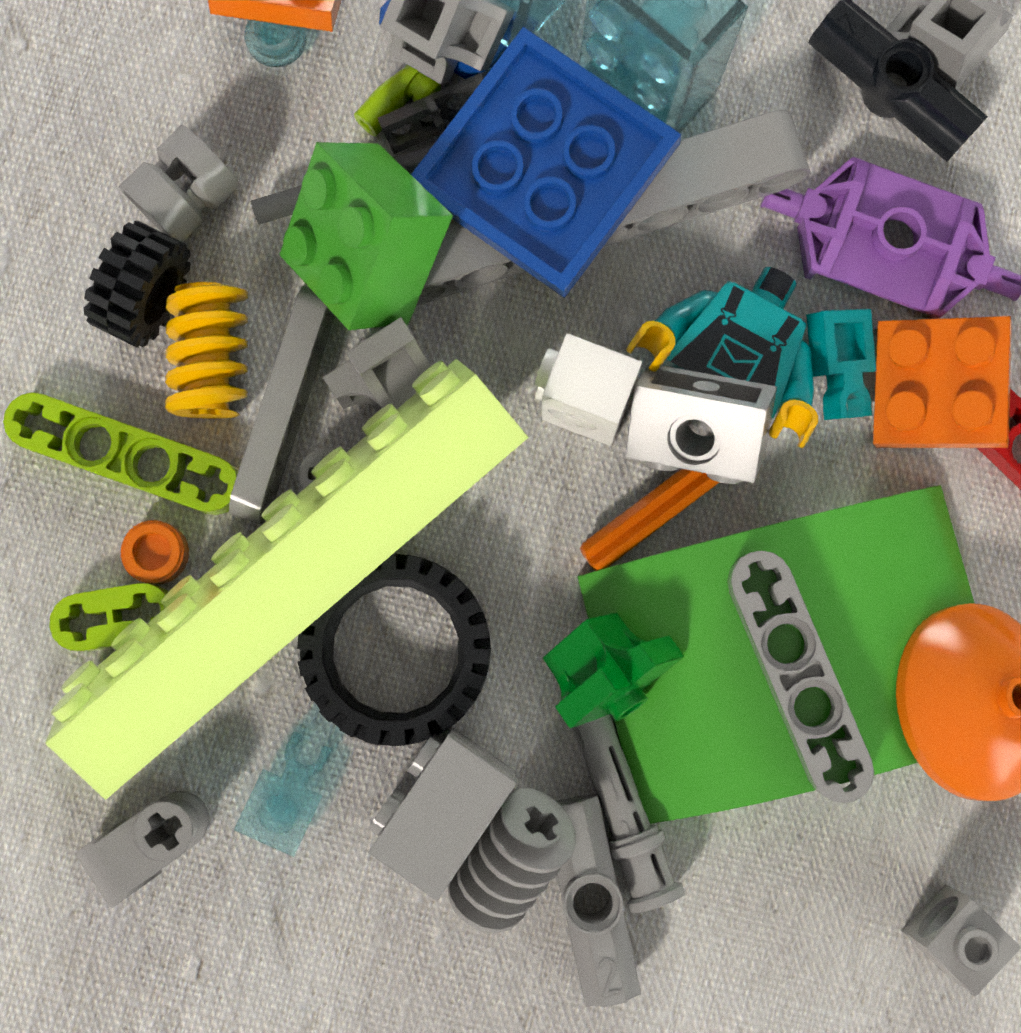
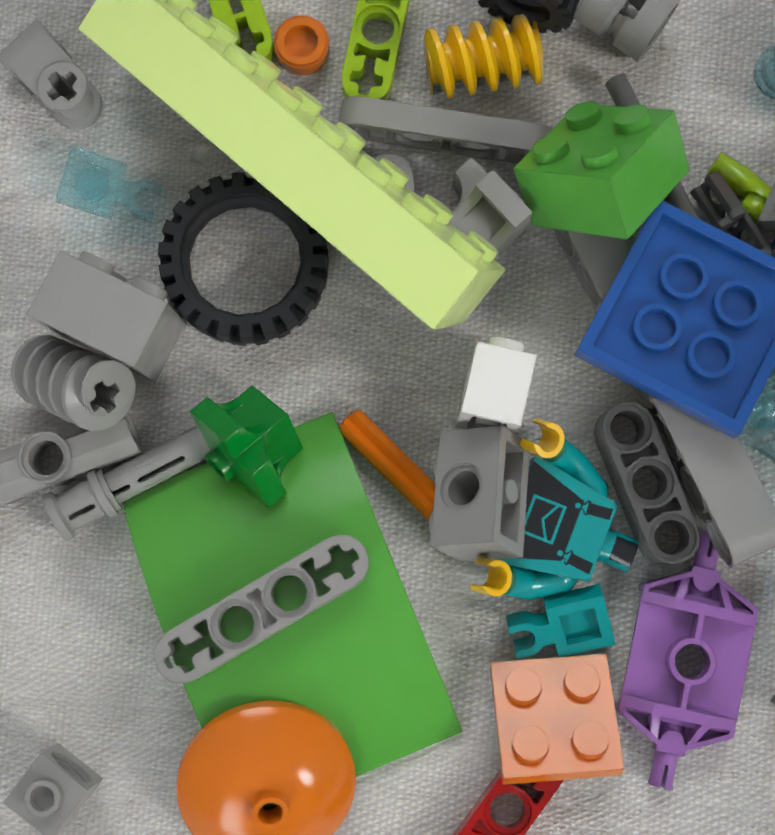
camera: 85 degrees right, 0 degrees up
(725, 229) = (669, 501): none -> dark grey beam

